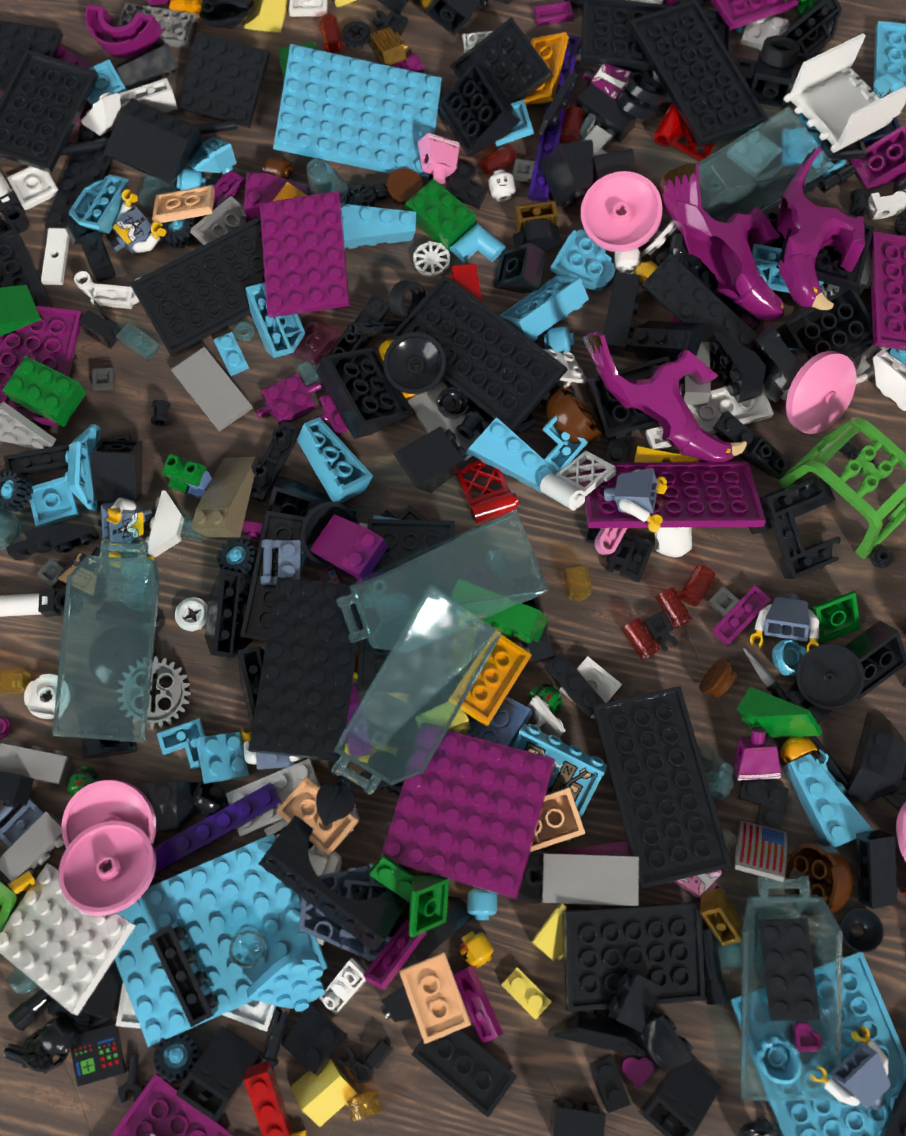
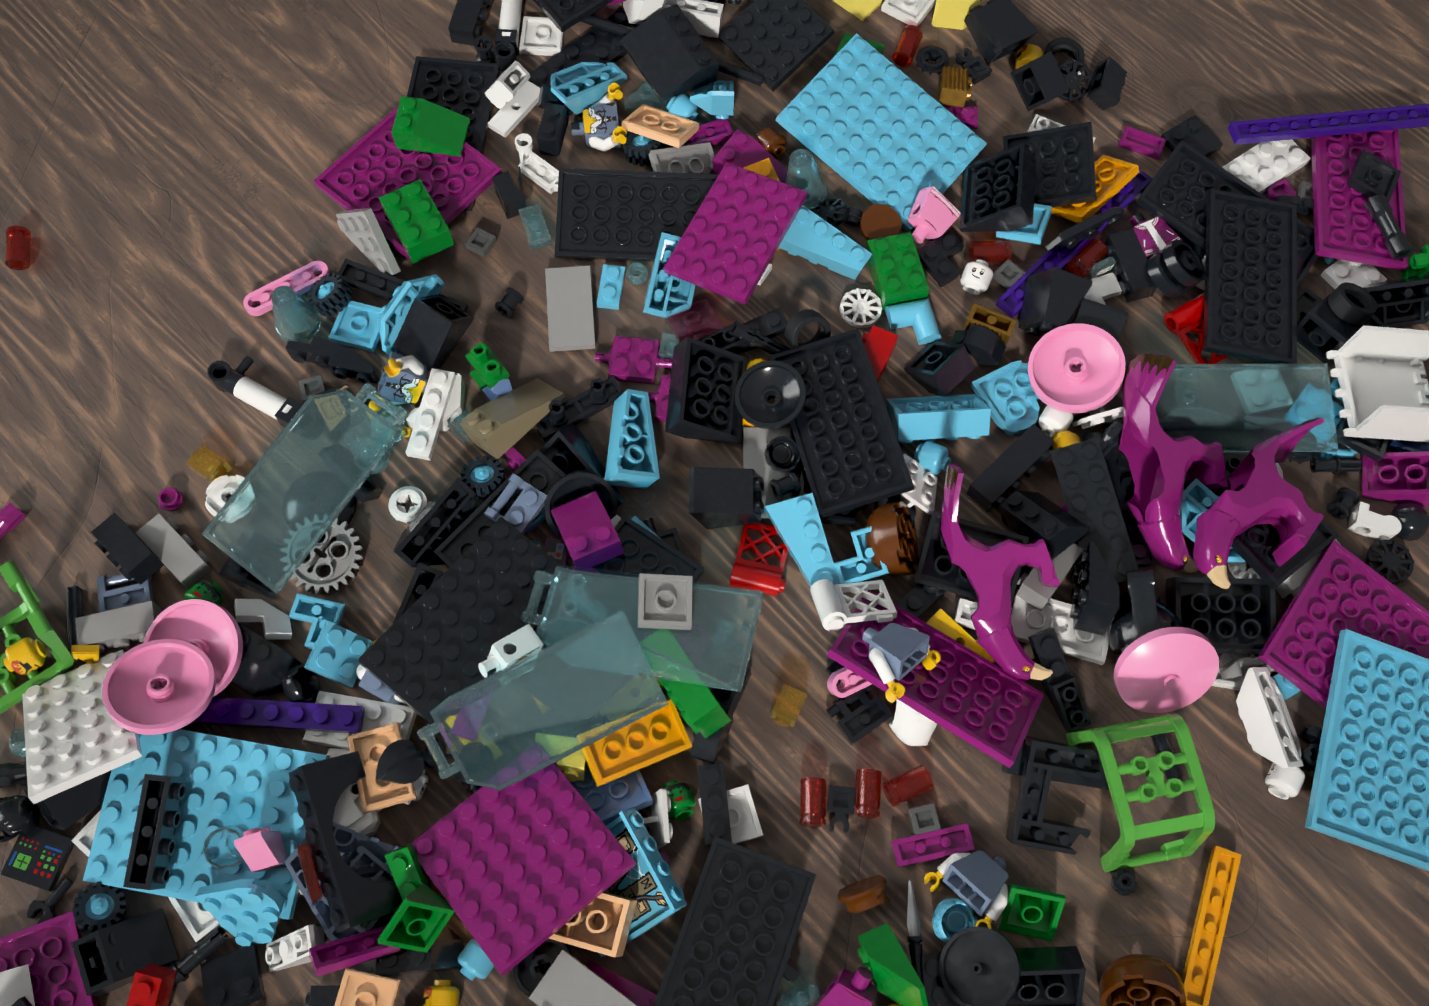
camera: 30 degrees right, 5 degrees down
(36, 240) = (507, 84): none -> white brick
(154, 766) = (275, 622): none -> white tile
(164, 534) = (430, 414): none -> white plate
(276, 930) = (262, 848): none -> bright pink slope
(325, 923) = (309, 873): none -> clear red tile
(359, 675) = (511, 650): none -> white torso
(454, 560) = (664, 601): none -> light grey plate

